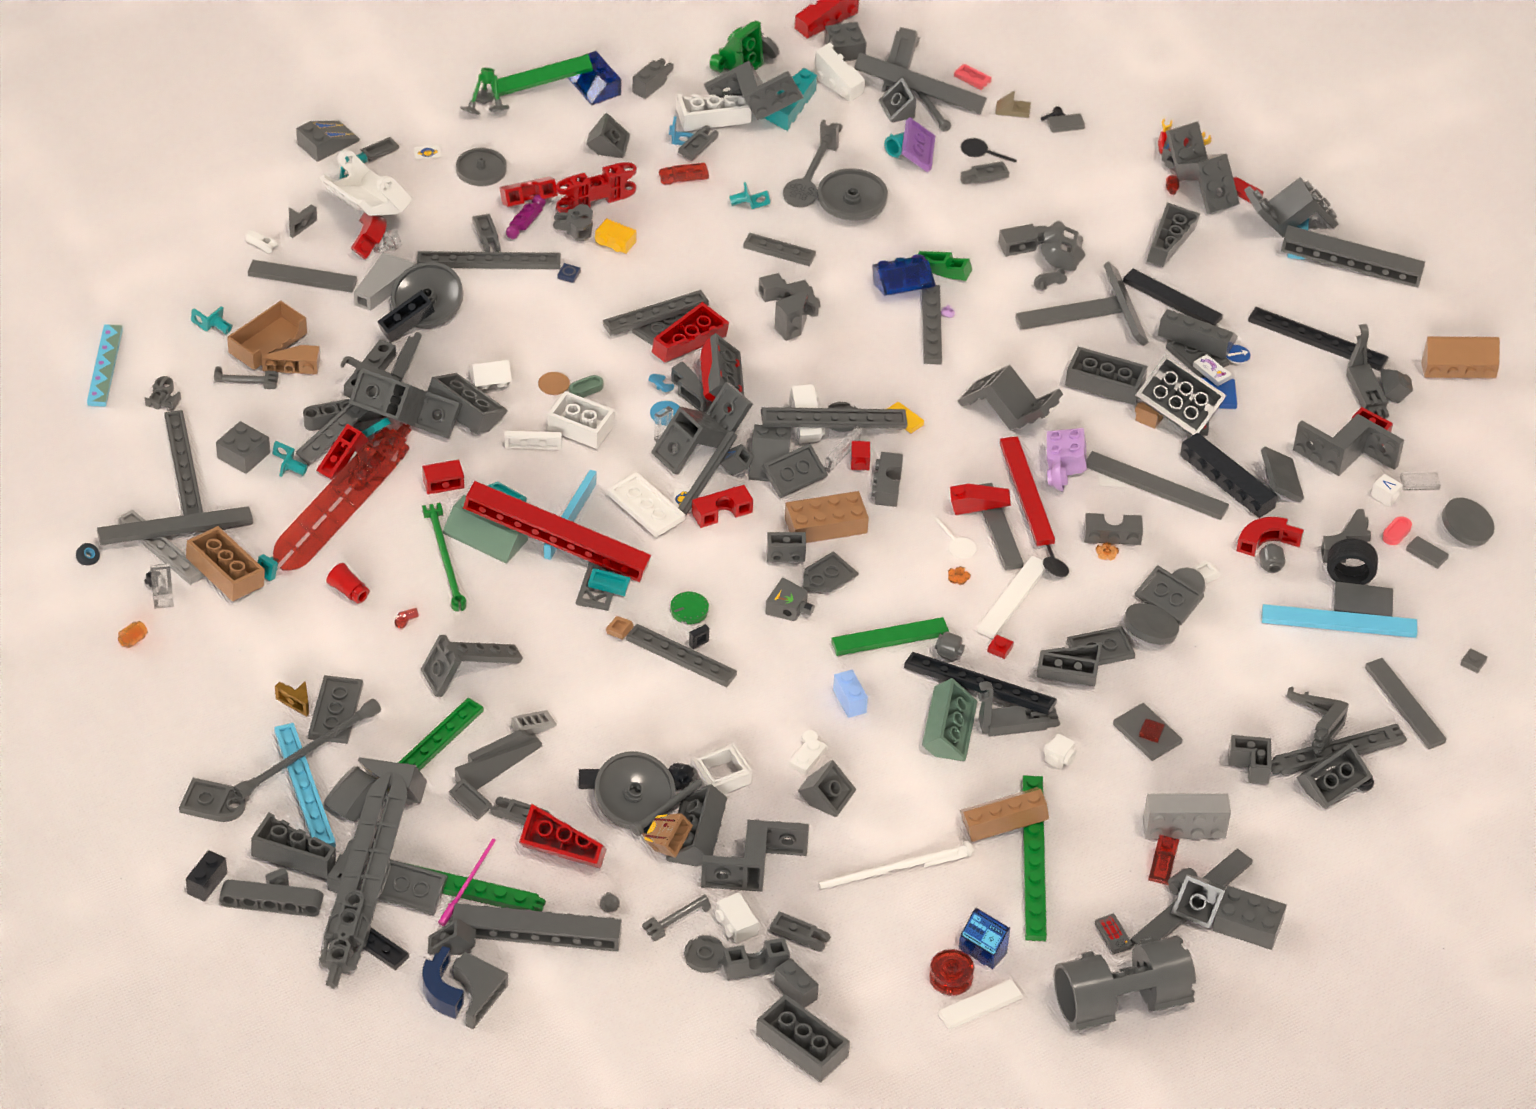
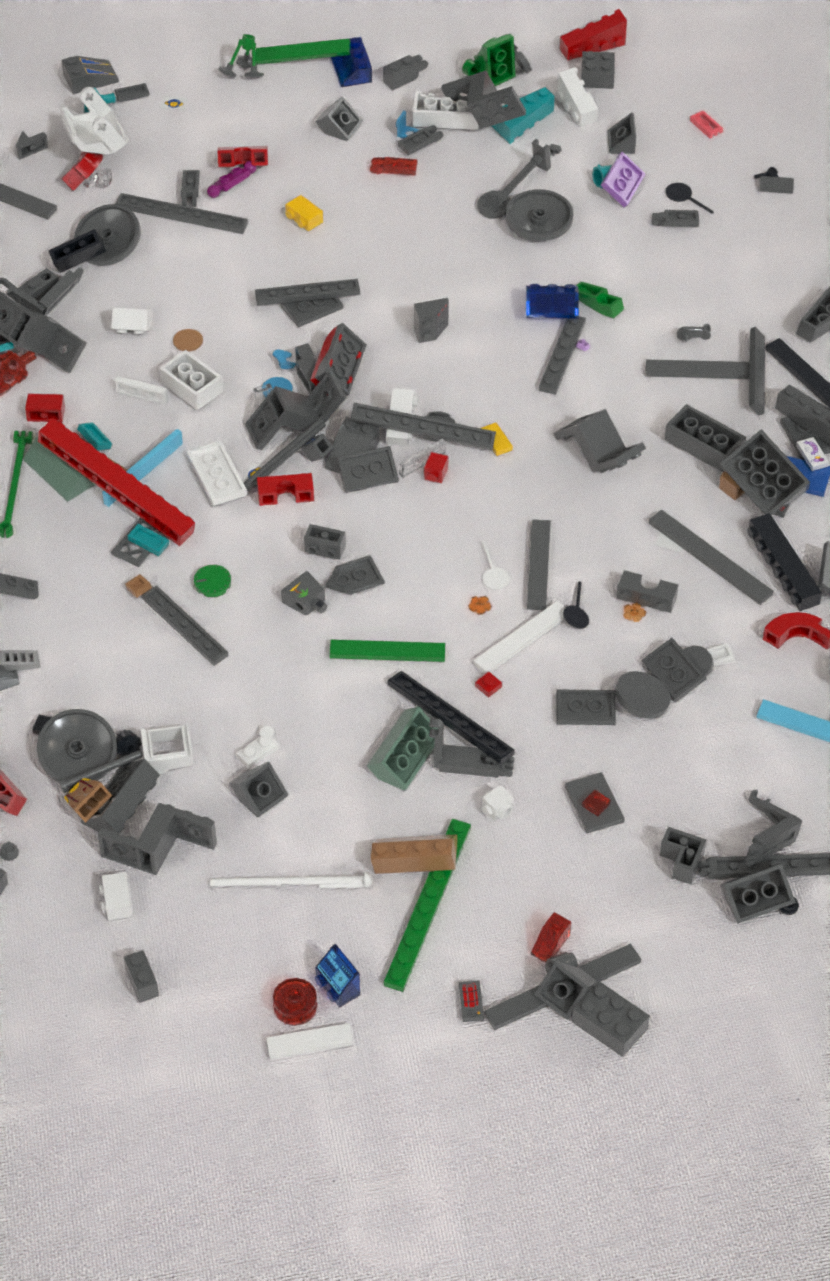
camera: 20 degrees right, 5 degrees up
(379, 281) = (67, 217): light grey slope -> none
(477, 410) = (103, 348): dark grey slope -> none
(481, 167) = (214, 125): dark grey piece -> none
(569, 273) = (247, 239): dark blue tile -> none
(575, 222) = (272, 192): dark grey hinge -> none
(587, 386) = (214, 349): sand green tile -> none
(597, 187) = (304, 164): red piece -> none
(656, 929) = (38, 887): dark grey hinge -> none
(689, 333) = (326, 315): red wedge -> none
(699, 636) = (207, 611): black tile -> none
(704, 954) = (73, 924): dark grey tile -> none
(742, 964) = (98, 943): dark grey arch -> none
(751, 199) = (442, 199): teal bracket -> none
(775, 289) = (428, 290): dark grey arch -> none
(779, 249) = (451, 254): dark grey tile -> none
(799, 931) = (169, 923): dark grey hinge -> none
(802, 1038) = (121, 1033): dark grey brick -> none
(828, 516) = (377, 521): medium nougat brick -> none
(850, 693) = (322, 698): light blue brick -> none
(887, 479) = (445, 506): dark grey arch -> none
(902, 50) = (641, 91): dark grey hinge -> none
(920, 83) = (650, 121): dark grey tile -> none
(944, 125) = (658, 165): dark grey bar -> none
(949, 645) = (437, 672): dark grey head -> none
(974, 498) = (527, 533): red slope -> none
(1009, 107) = (732, 161): dark tan slope -> none
(1021, 239) = (684, 289): dark grey hinge -> none
(1027, 491) = (581, 536): red tile -> none
(1052, 249) = (709, 313): dark grey piece -> none
(1065, 455) = (630, 509): lavender brick -> none
(1071, 664) = (547, 719): dark grey wedge -> none
(1089, 989) = (489, 1056): dark grey cylinder -> none
(1186, 816) = (590, 899): light grey piece -> none
(1272, 558) = (792, 654): dark grey head -> none

